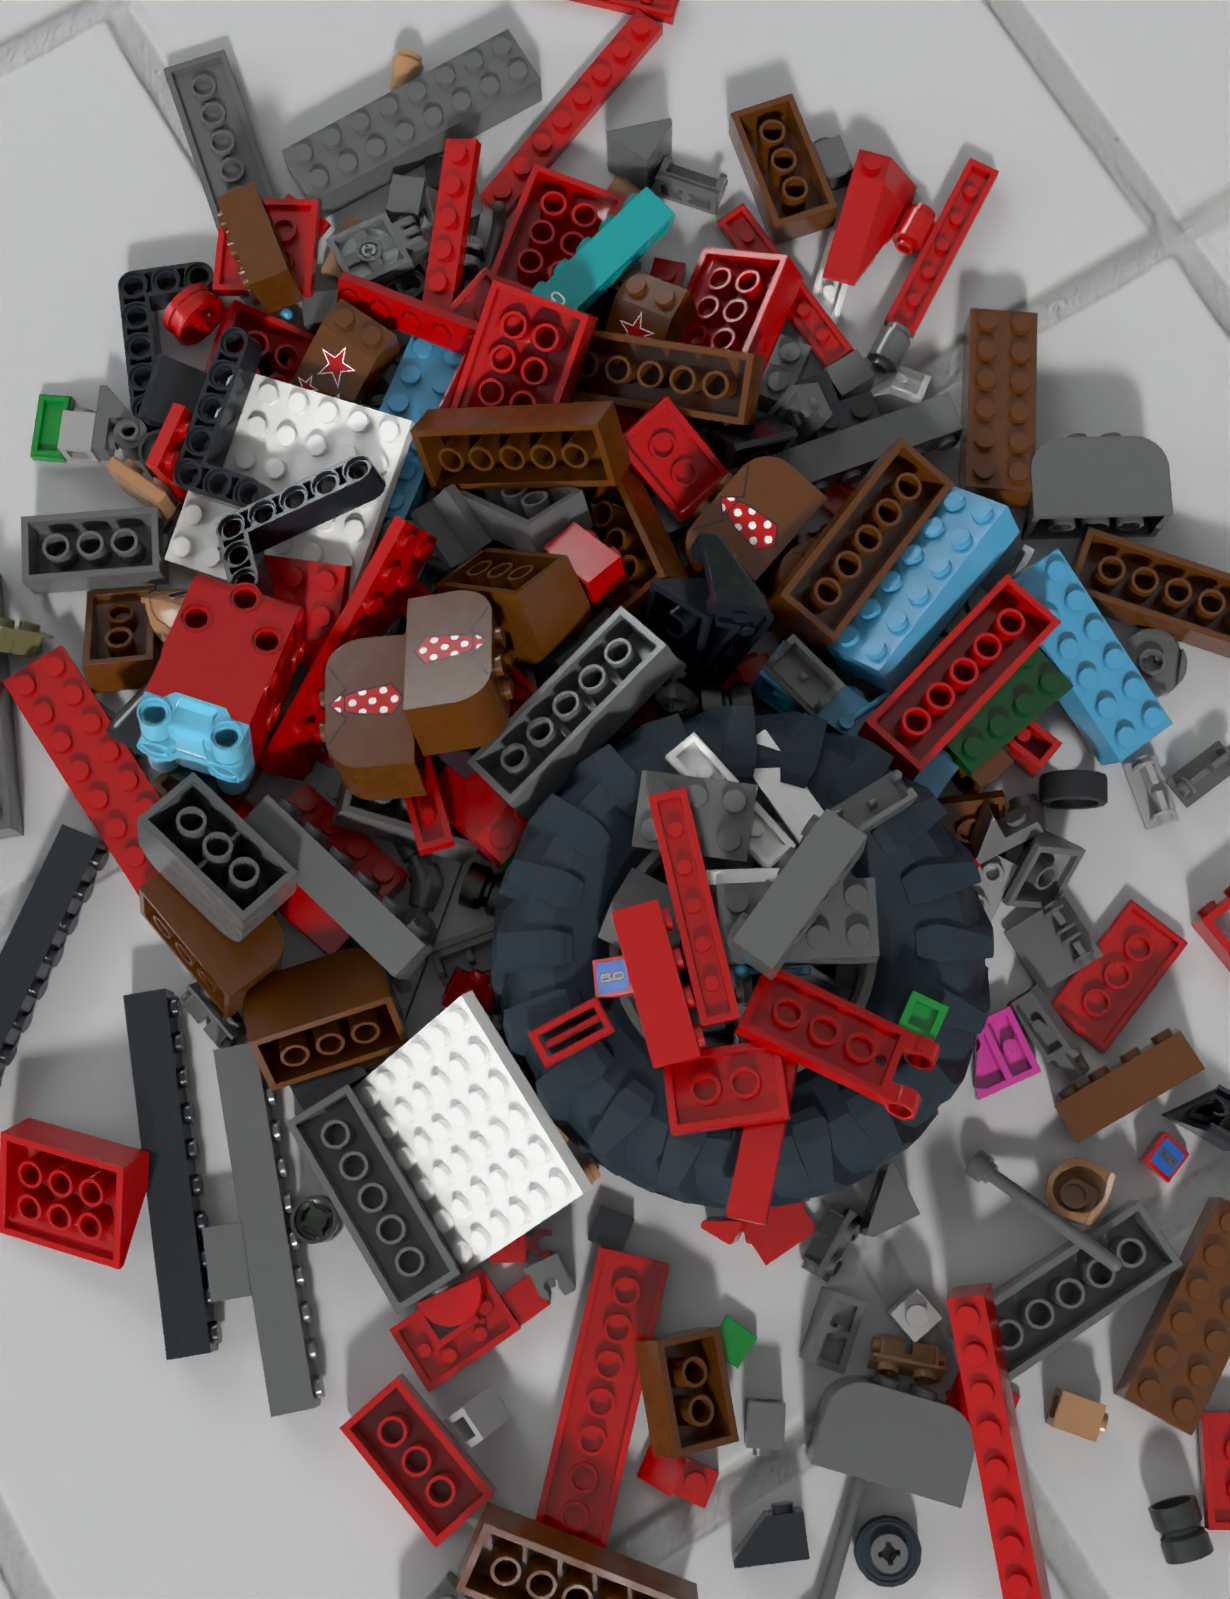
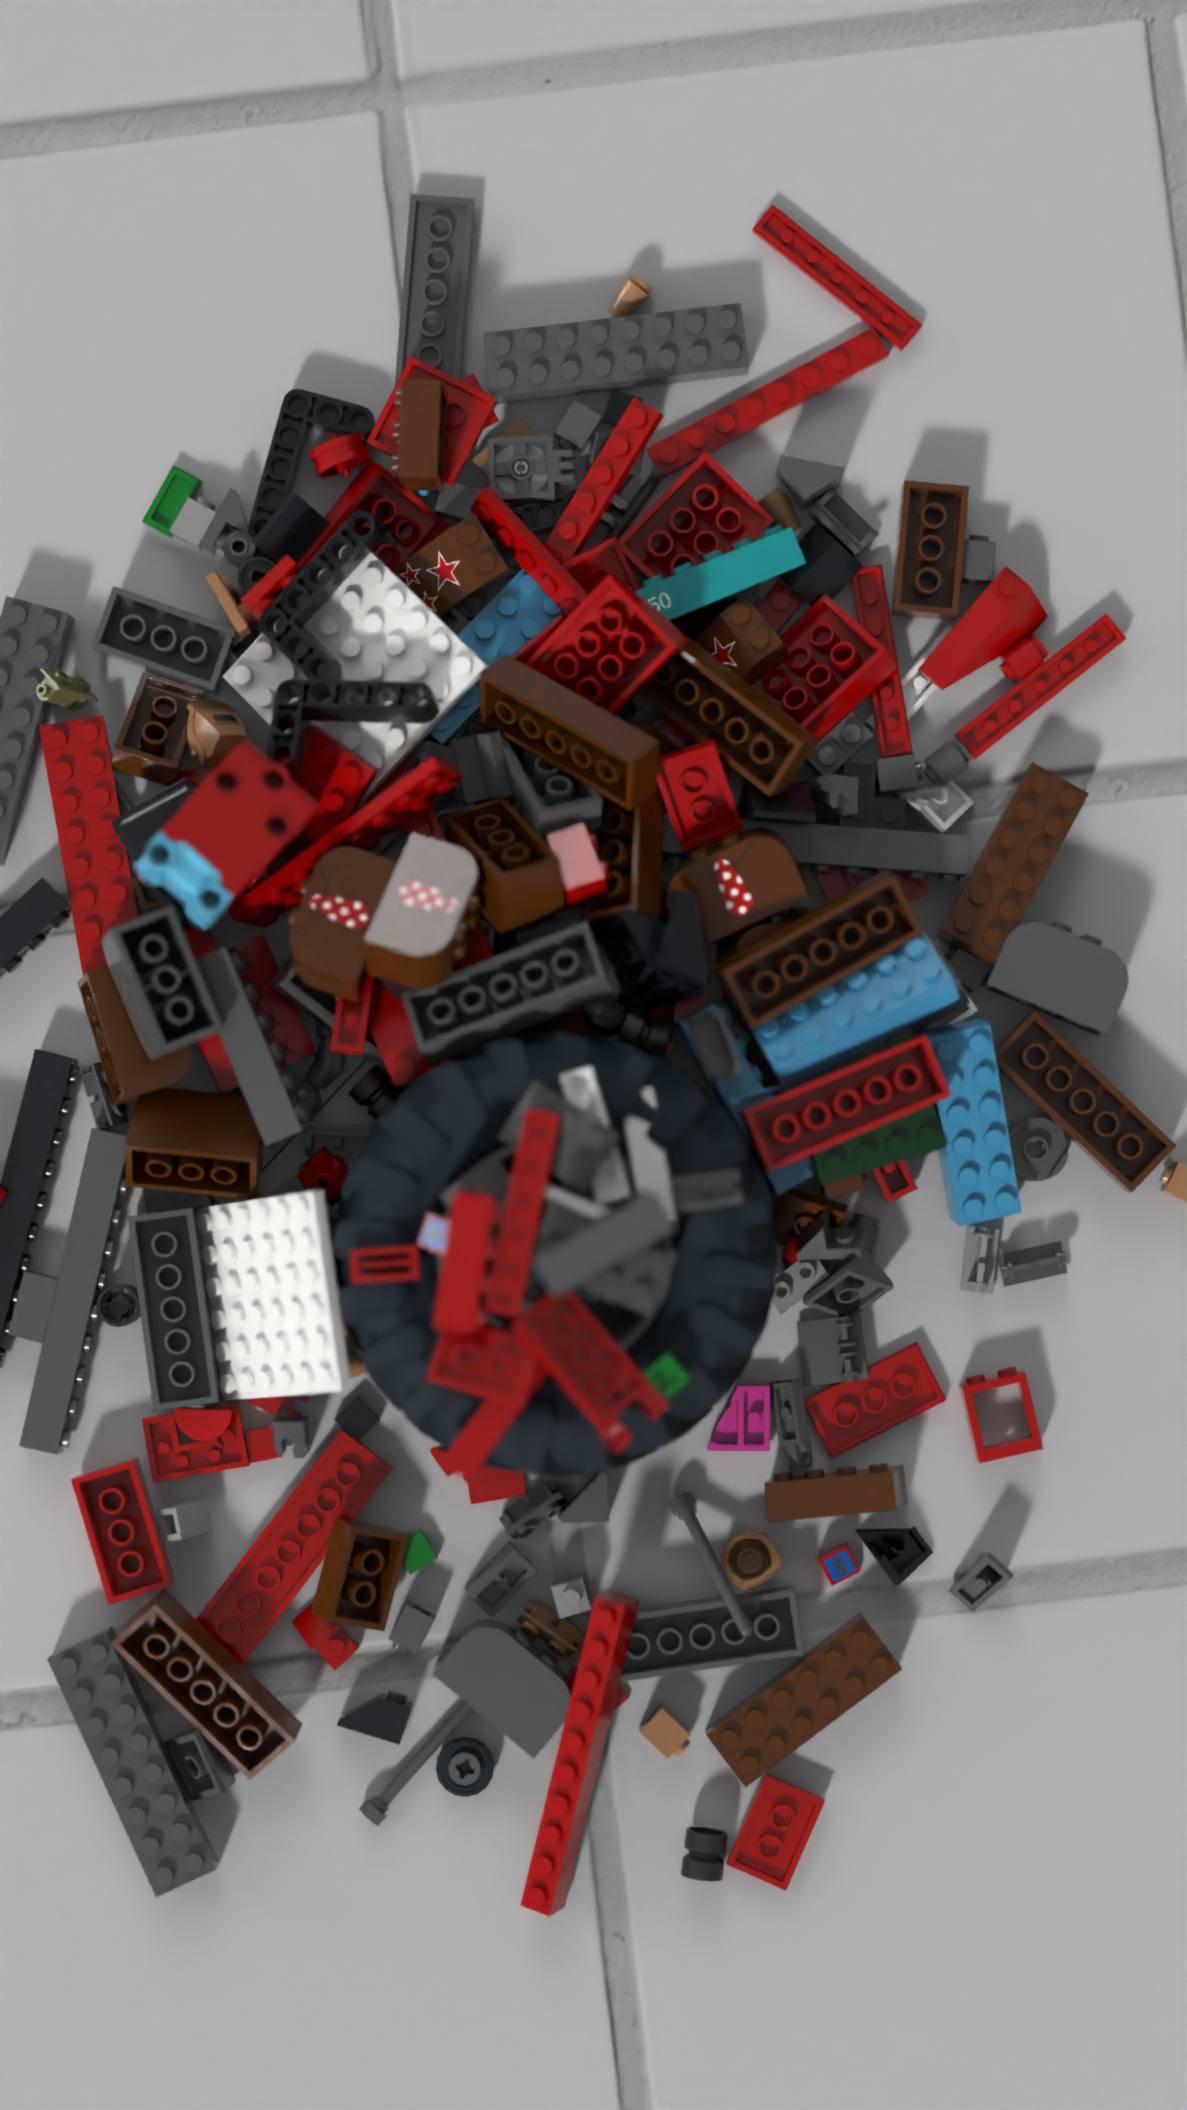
camera: 25 degrees right, 10 degrees up
(695, 226) = (826, 569): none -> black slope
(1073, 789) = (910, 1230): black tyre -> none

